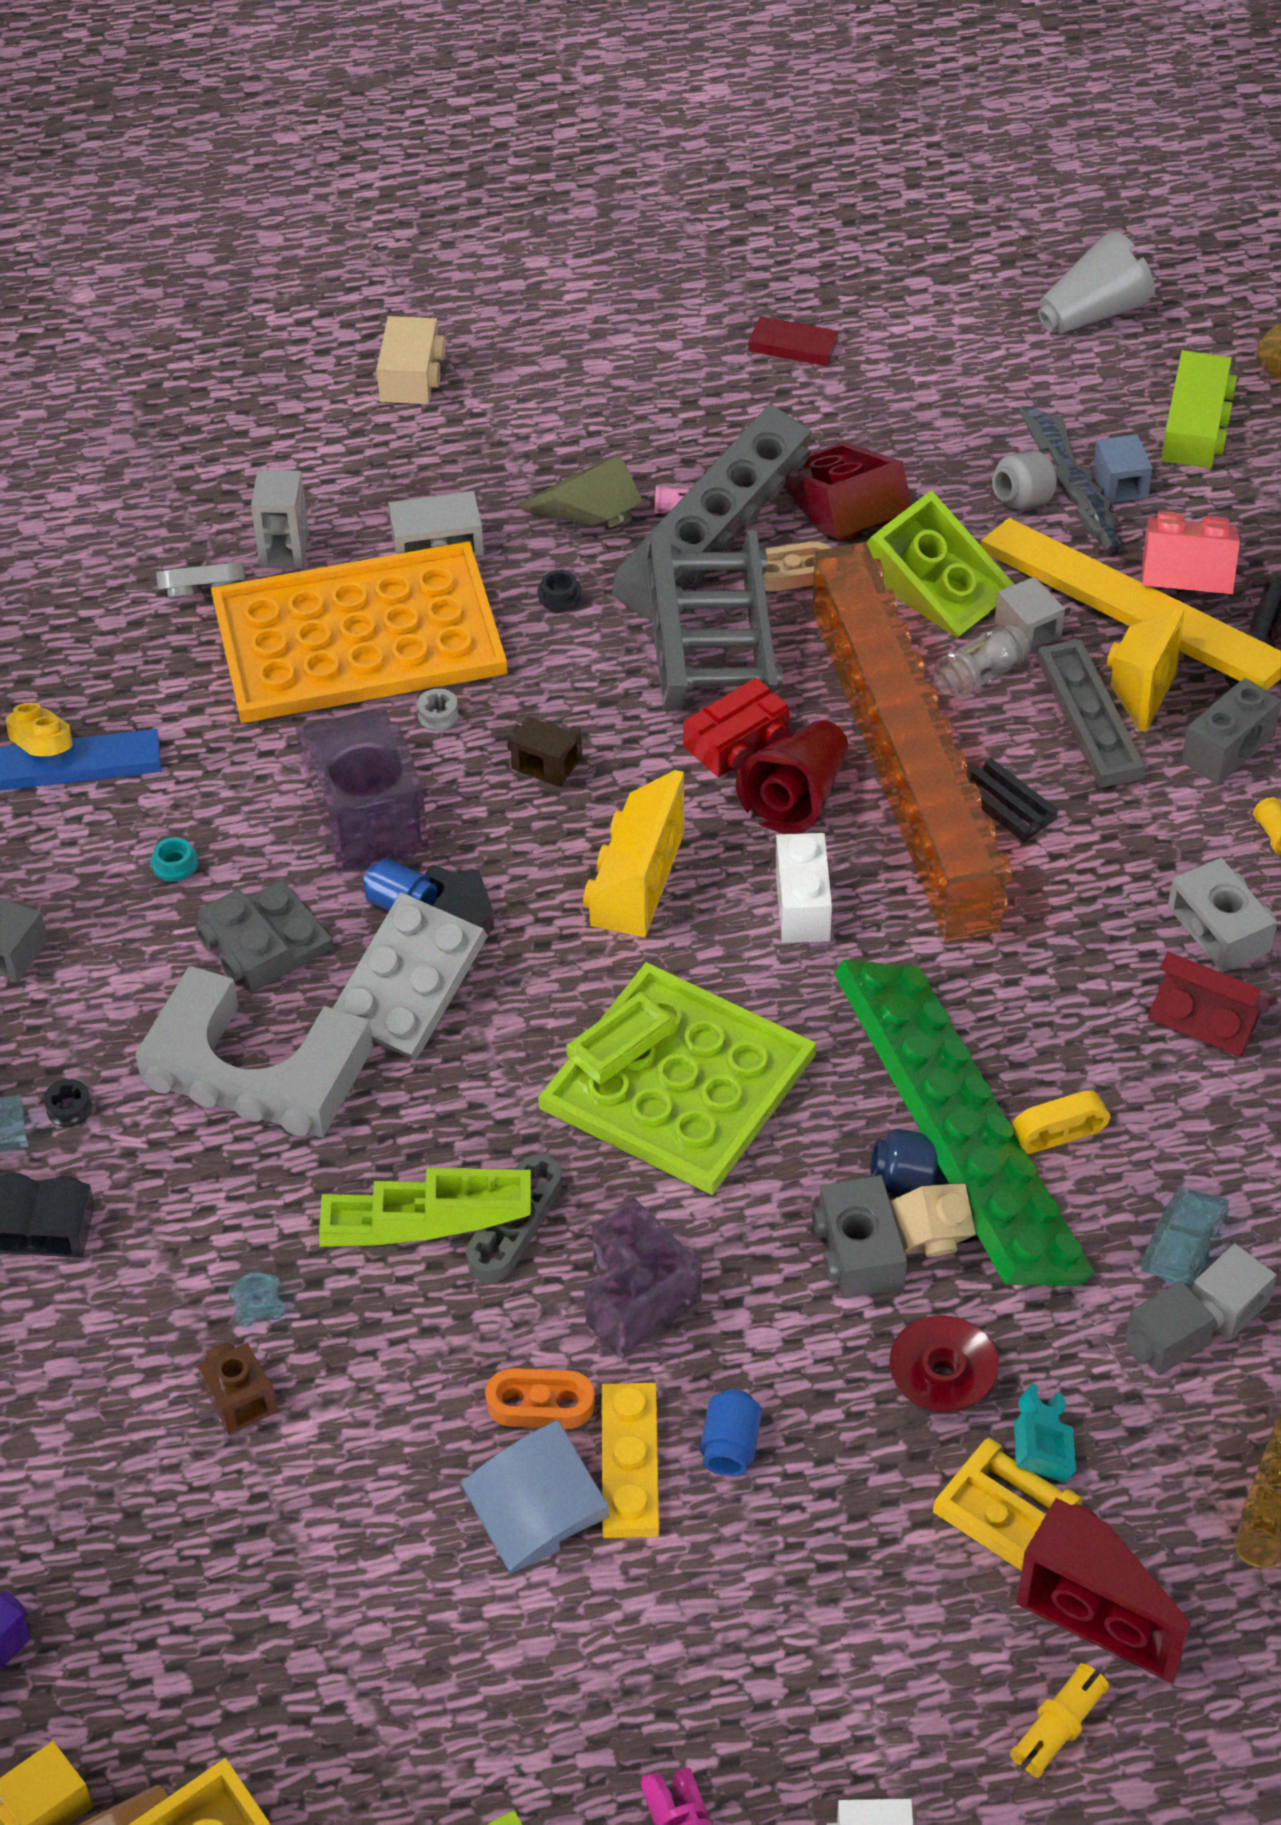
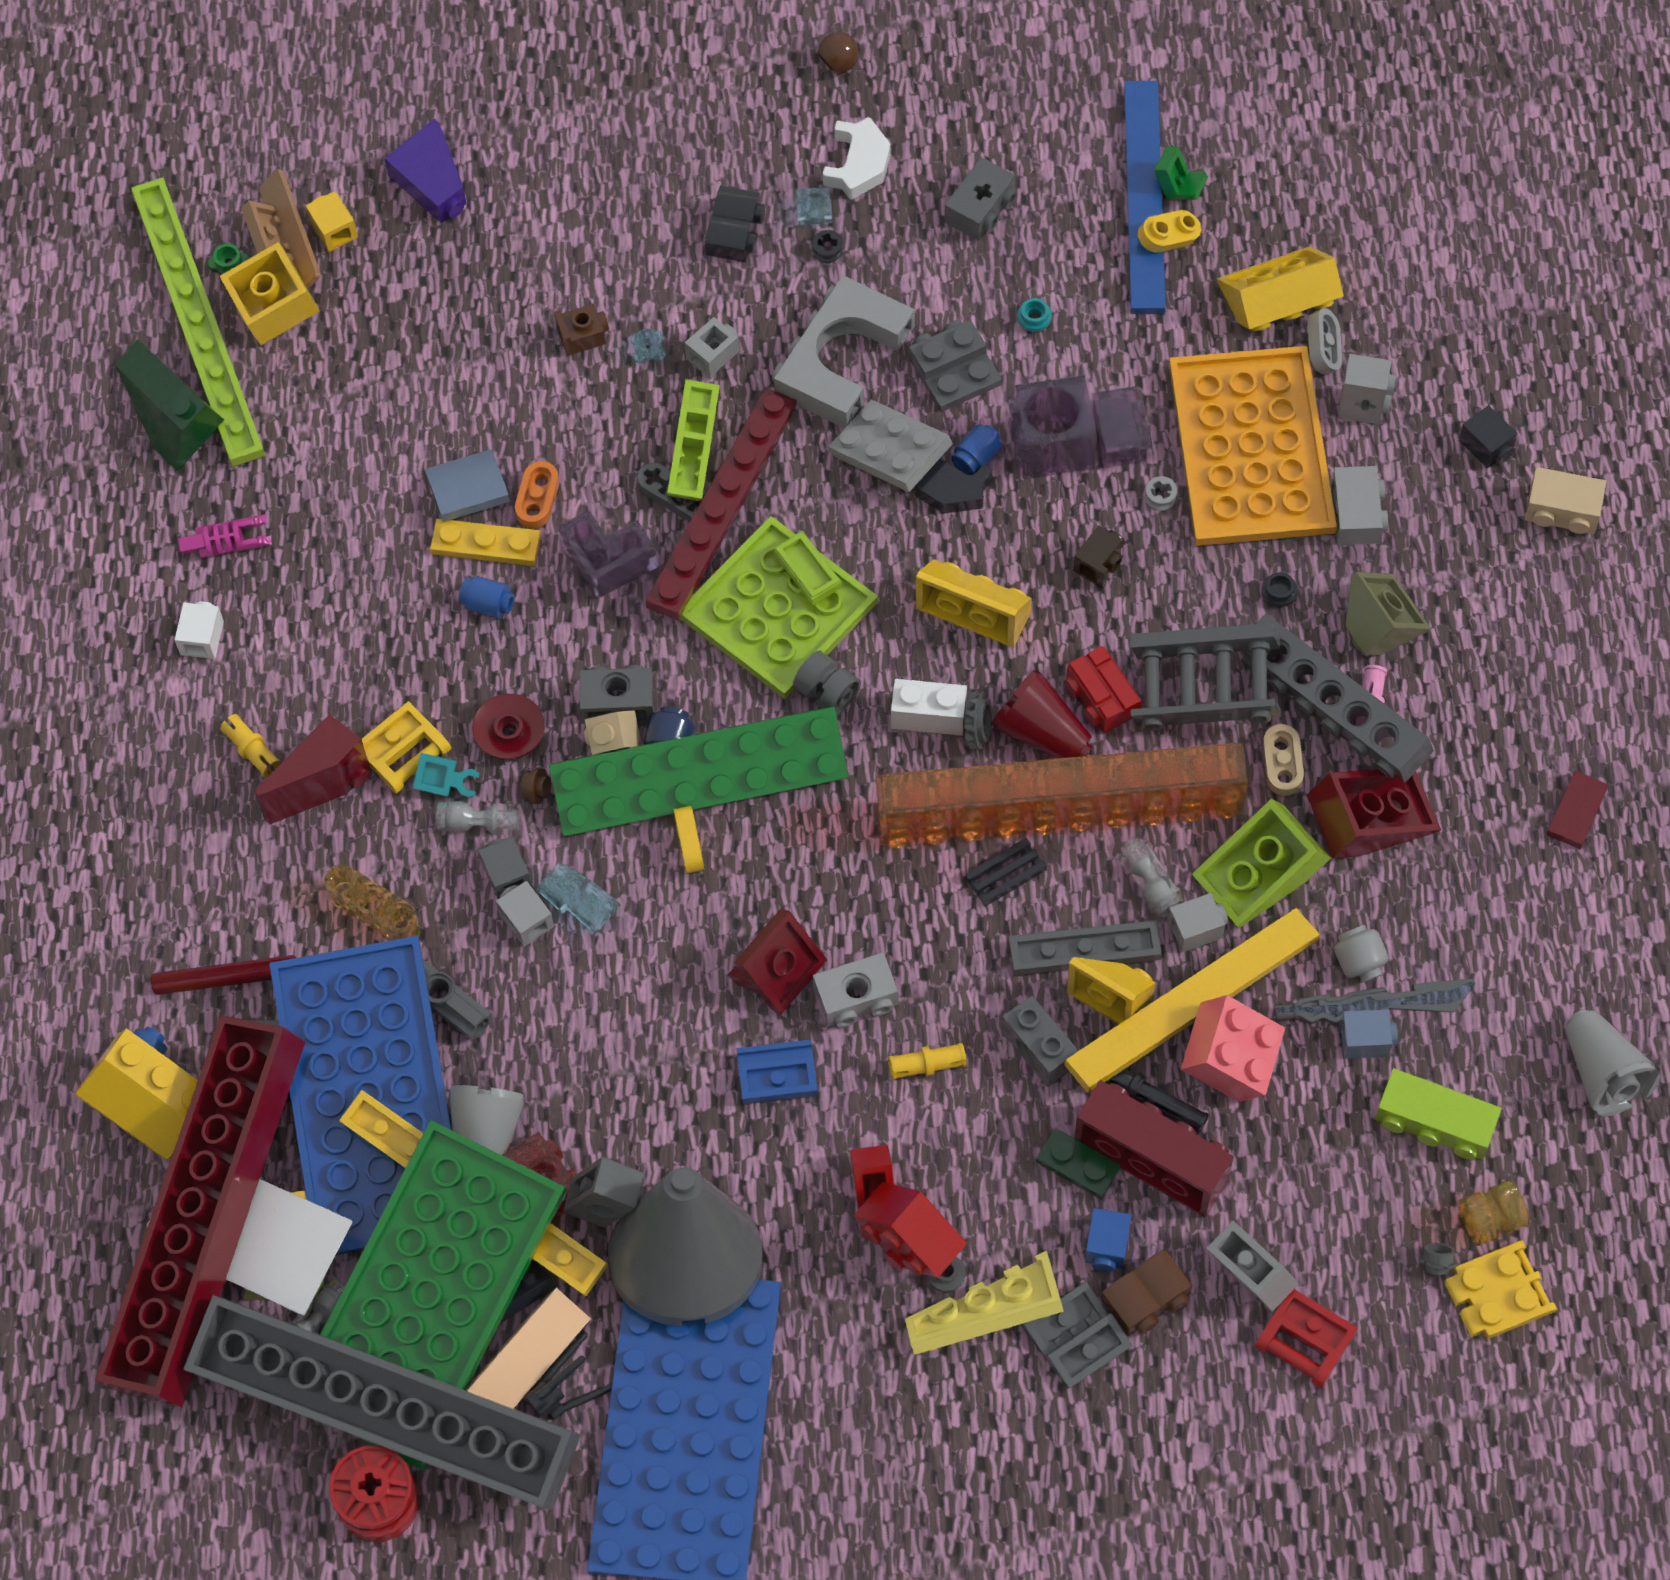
camera: 100 degrees right, 15 degrees up
(119, 620) = (1282, 288): none -> yellow slope
(260, 1207) = (710, 336): none -> light grey brick
(326, 429) = (1488, 437): none -> black brick
(554, 1161) = (721, 504): none -> dark red plate
(795, 992) = (822, 680): none -> dark grey wheel
(818, 820) = (978, 720): none -> dark grey gear
(1027, 1314) = (536, 785): none -> reddish brown plate
(1104, 1400) = (460, 817): none -> clear piece

